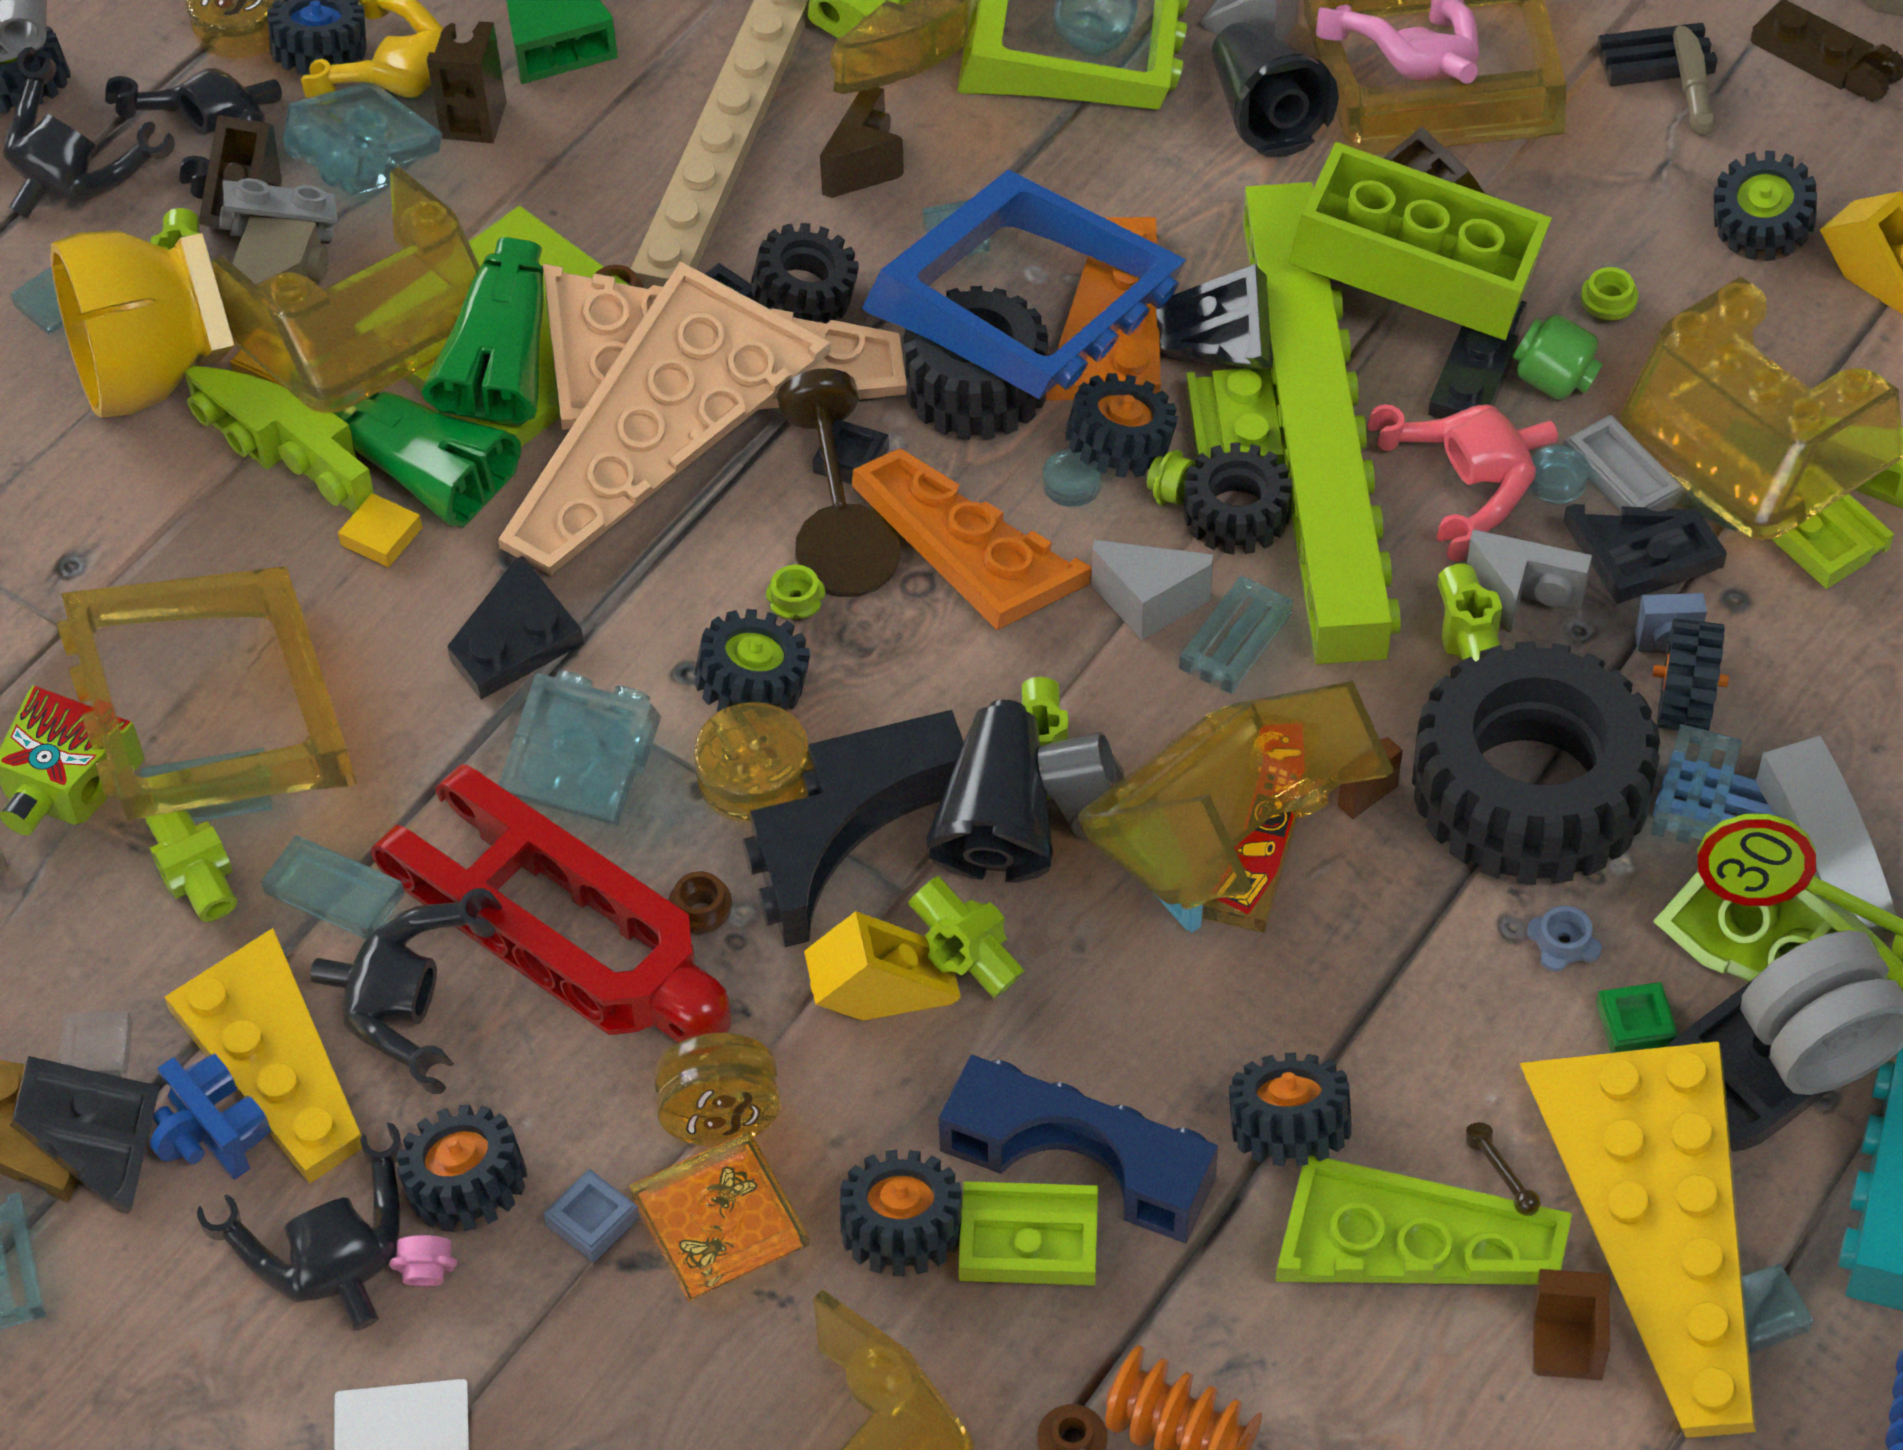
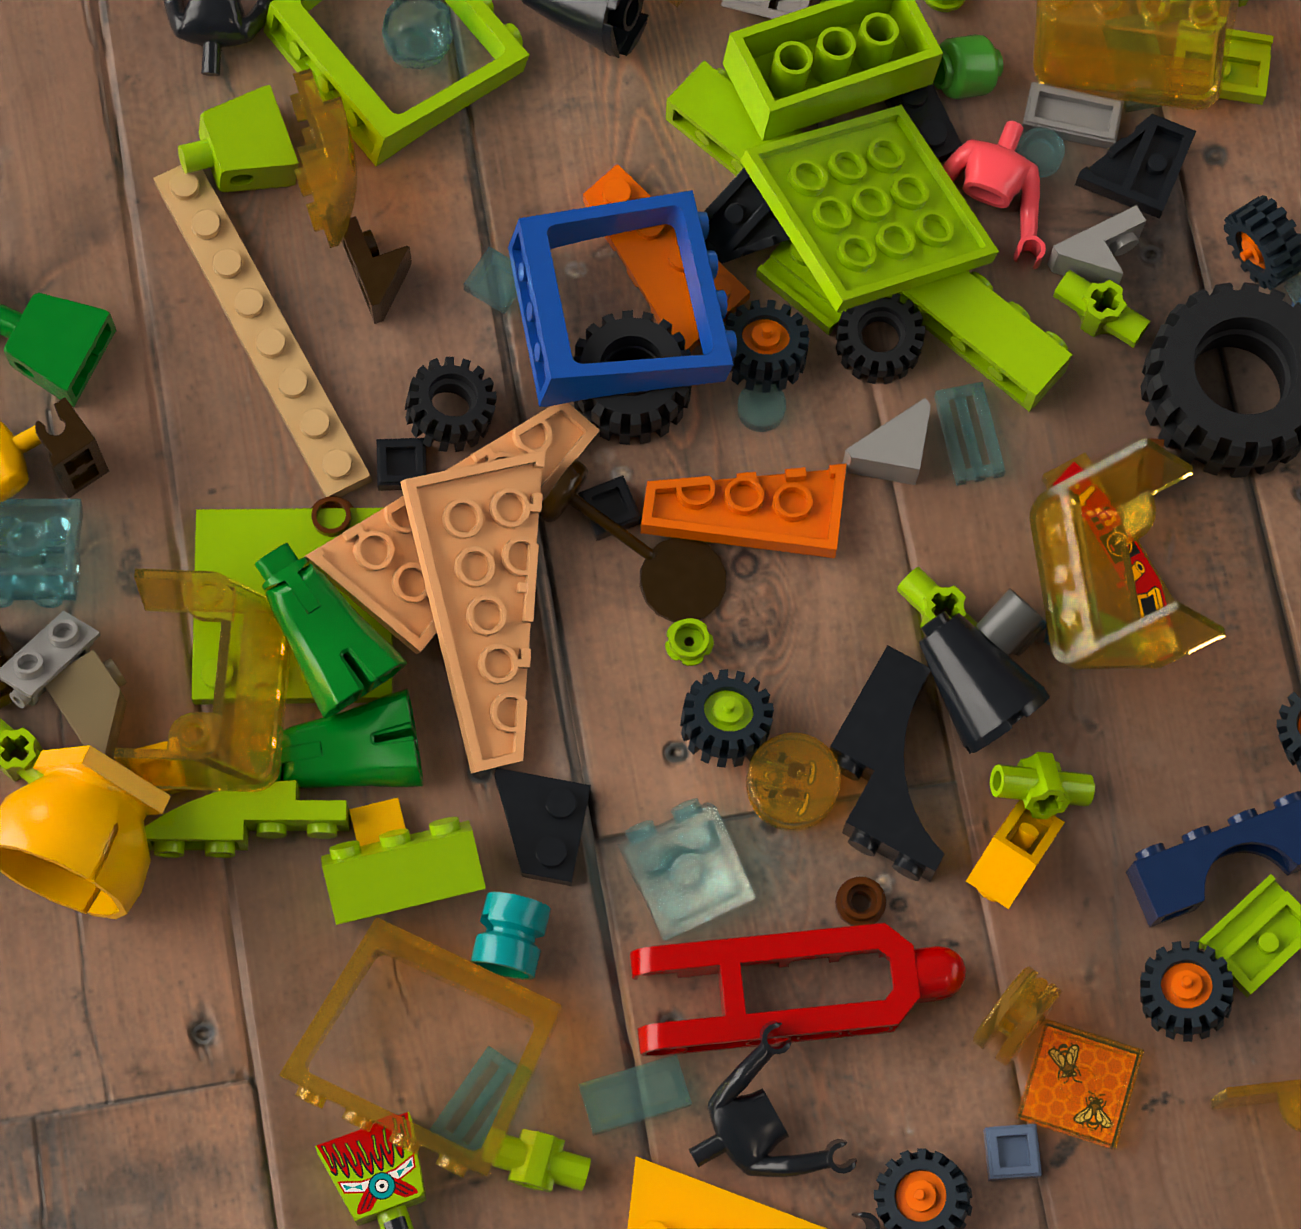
camera: 50 degrees left, 20 degrees up
(353, 557) = (402, 870): none -> lime brick
(372, 677) = (510, 935): none -> teal wheel
(1168, 477) = (826, 356): lime plate -> none
(1325, 371) = (869, 207): none -> lime plate
(1657, 615) = (1210, 210): sand blue plate -> none

